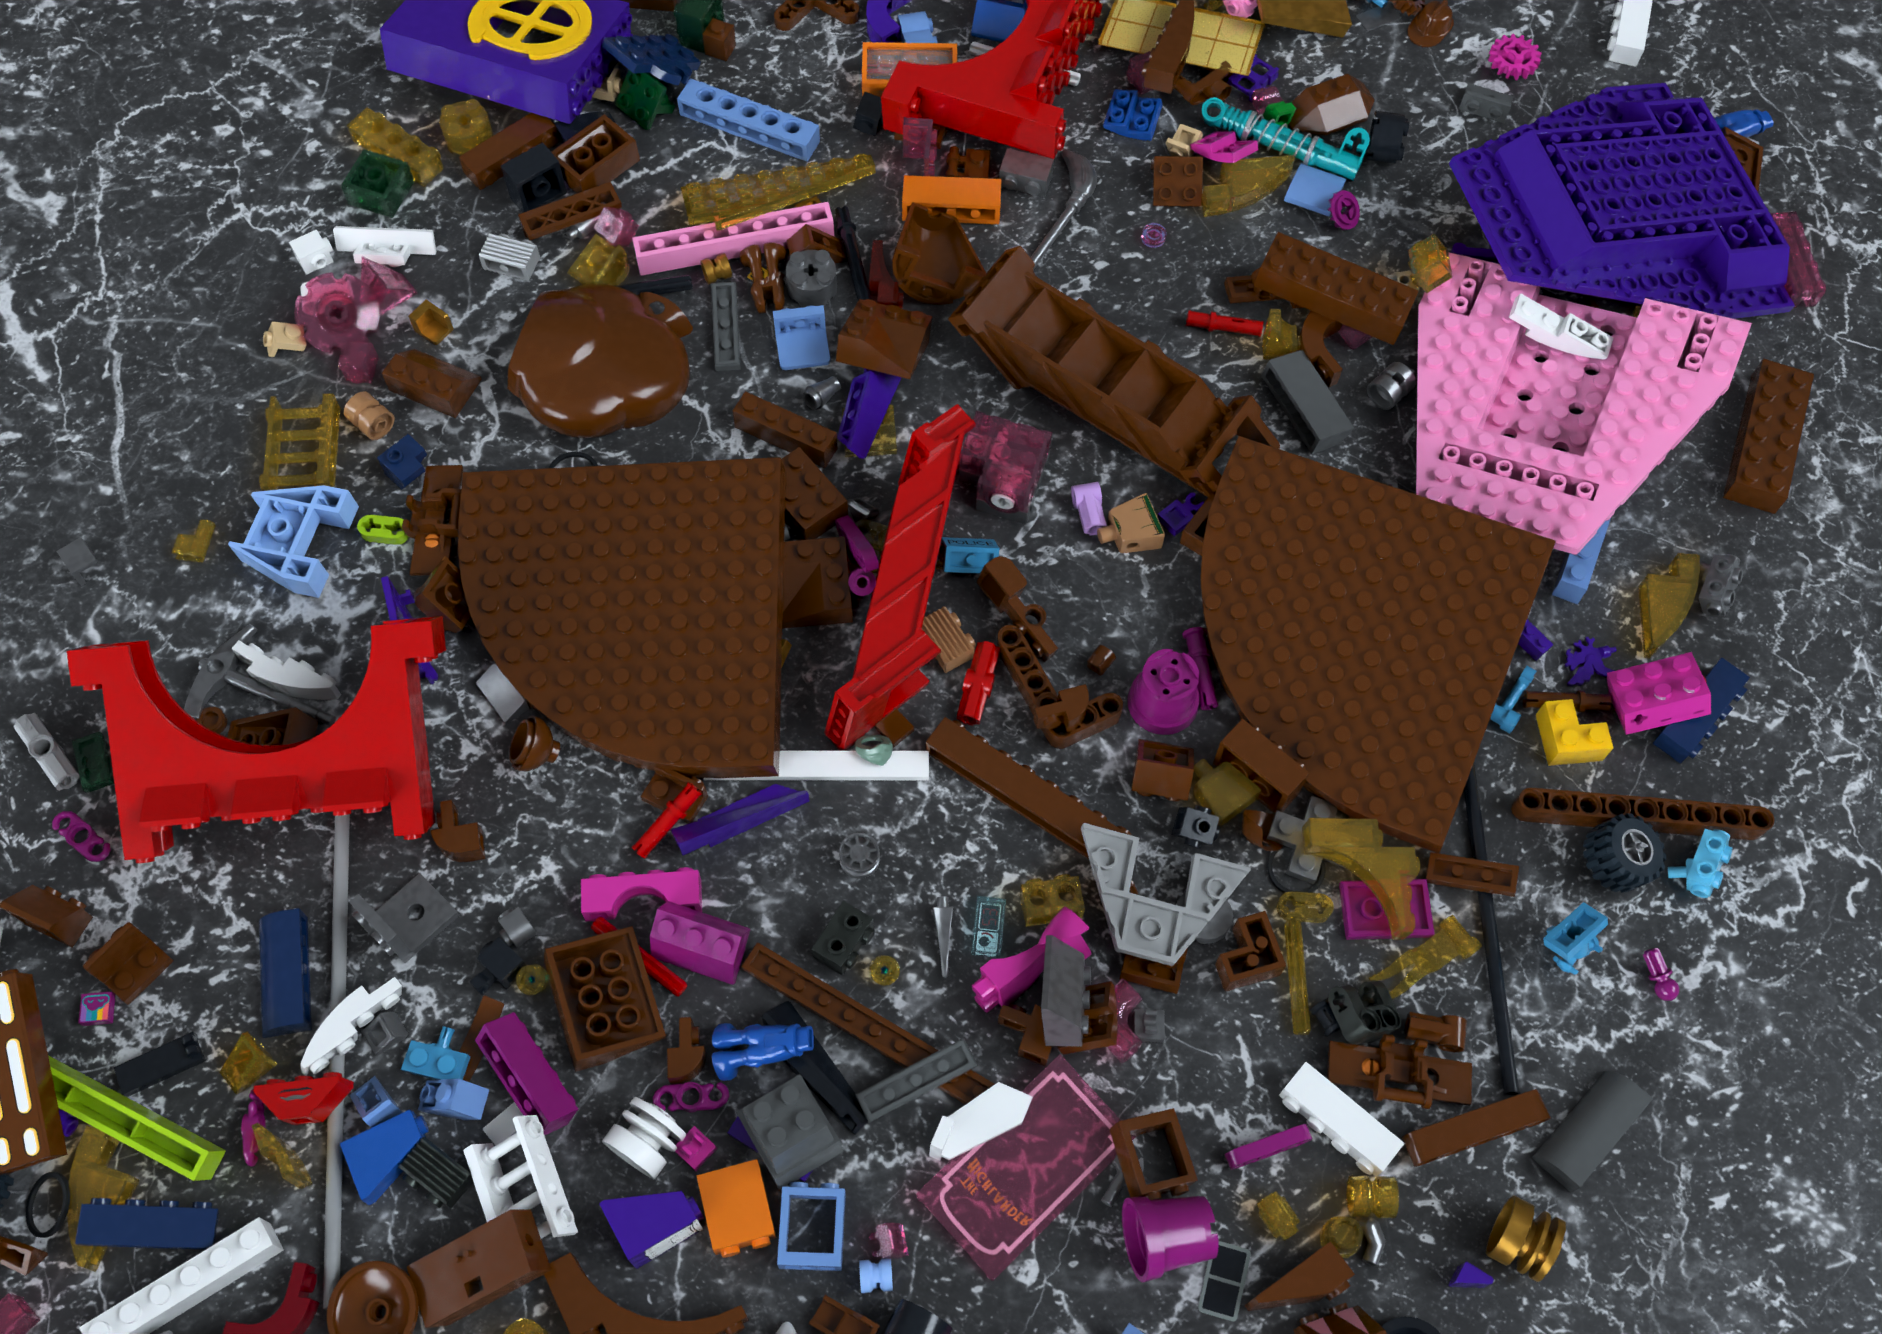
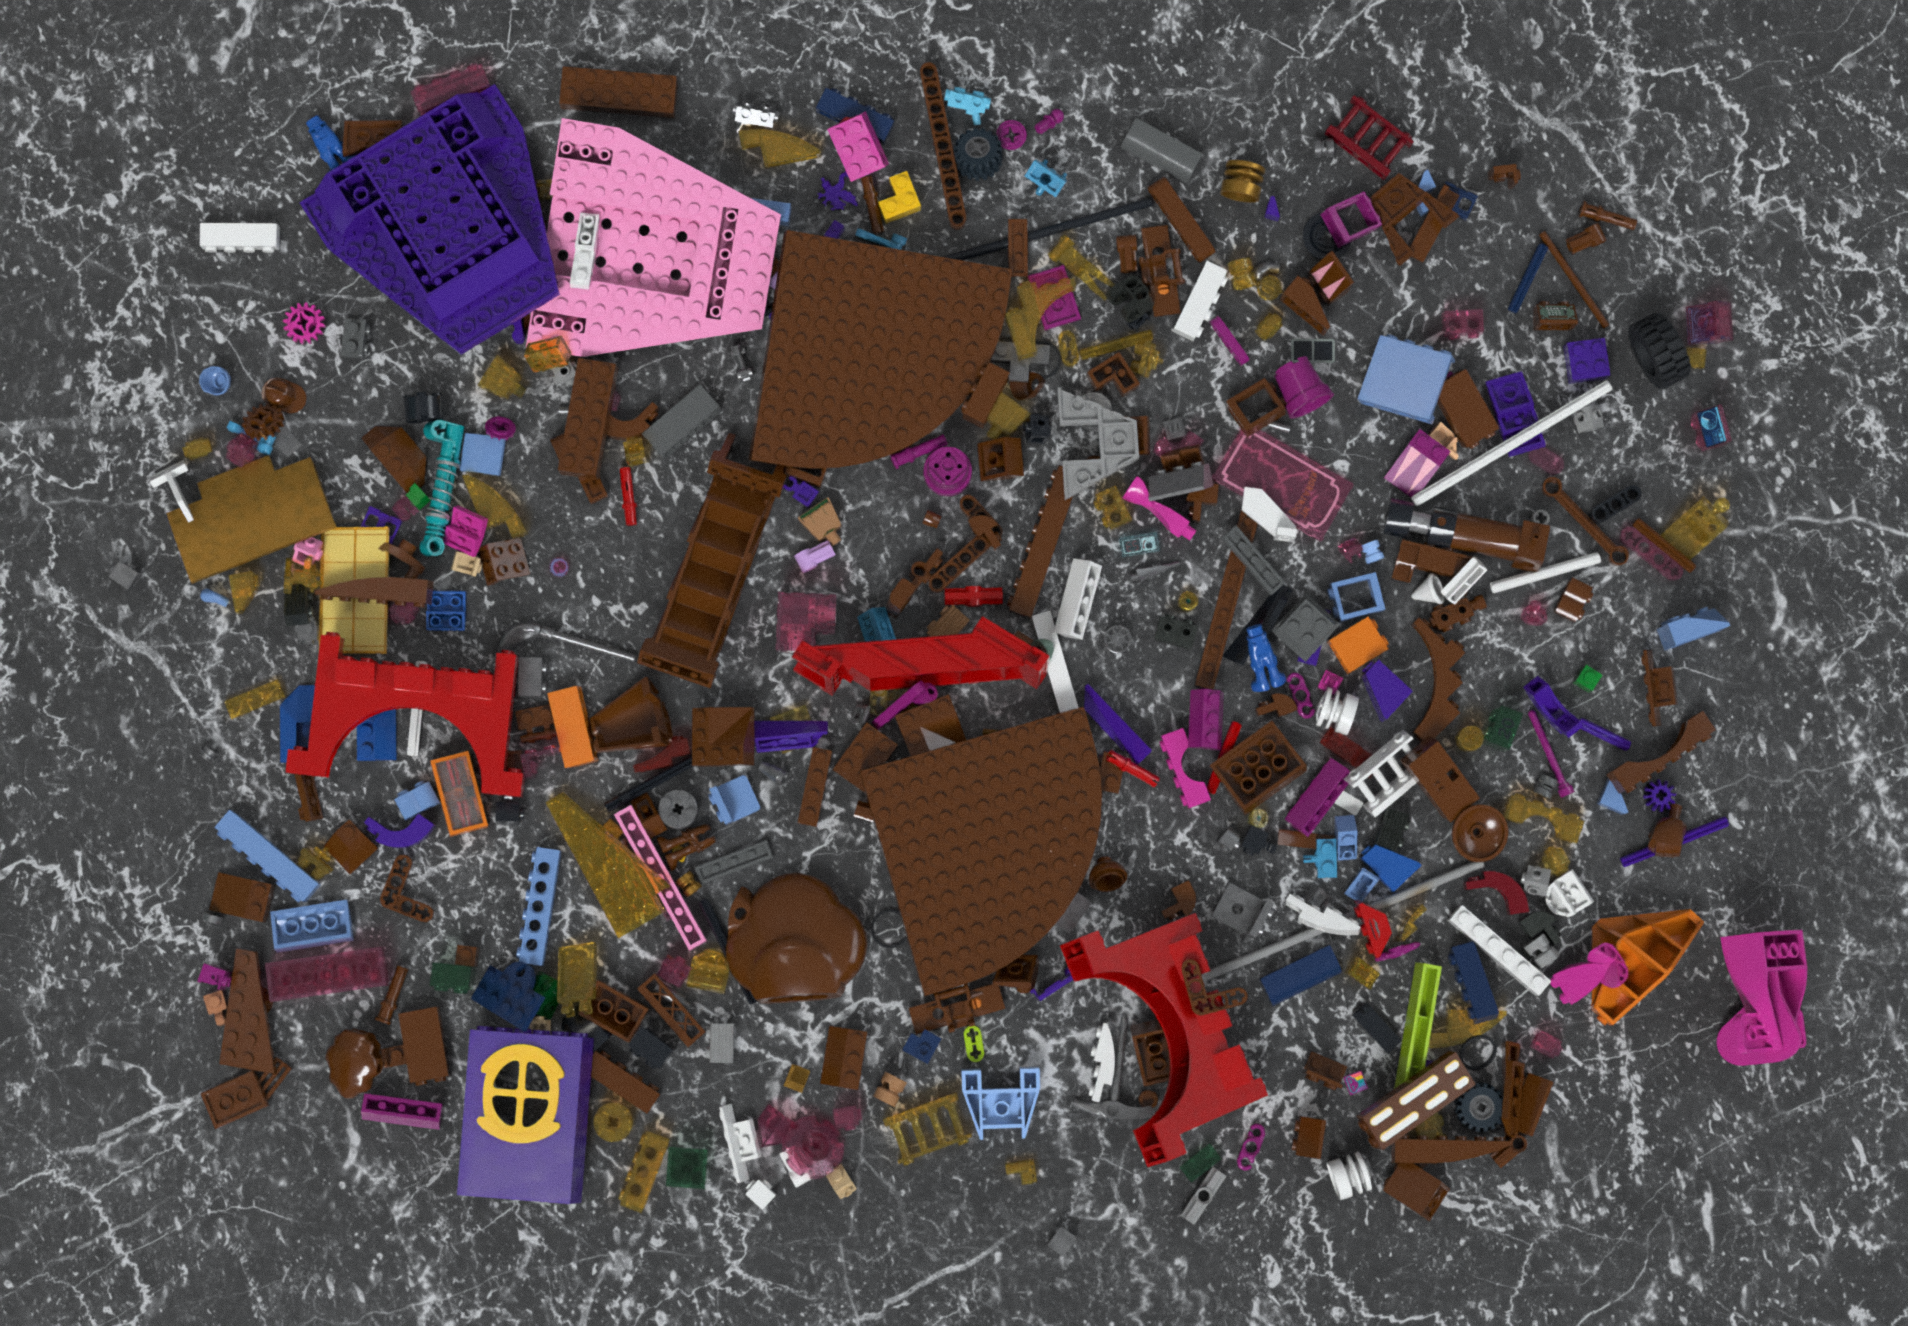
camera: 110 degrees left, 20 degrees up
(289, 789) = (1202, 996): none -> reddish brown beam
(582, 1139) = (1345, 748): none -> clear red slope
(646, 125) = (577, 977): none -> clear yellow tile
(933, 813) = (1077, 599): none -> white brick
(1266, 1013) = (1149, 359): none -> clear yellow hips
(1391, 385) = (659, 364): flat silver wheel -> none
(1405, 226) = (502, 380): none -> clear yellow torso
(1653, 906) = (1016, 128): none -> magenta gear

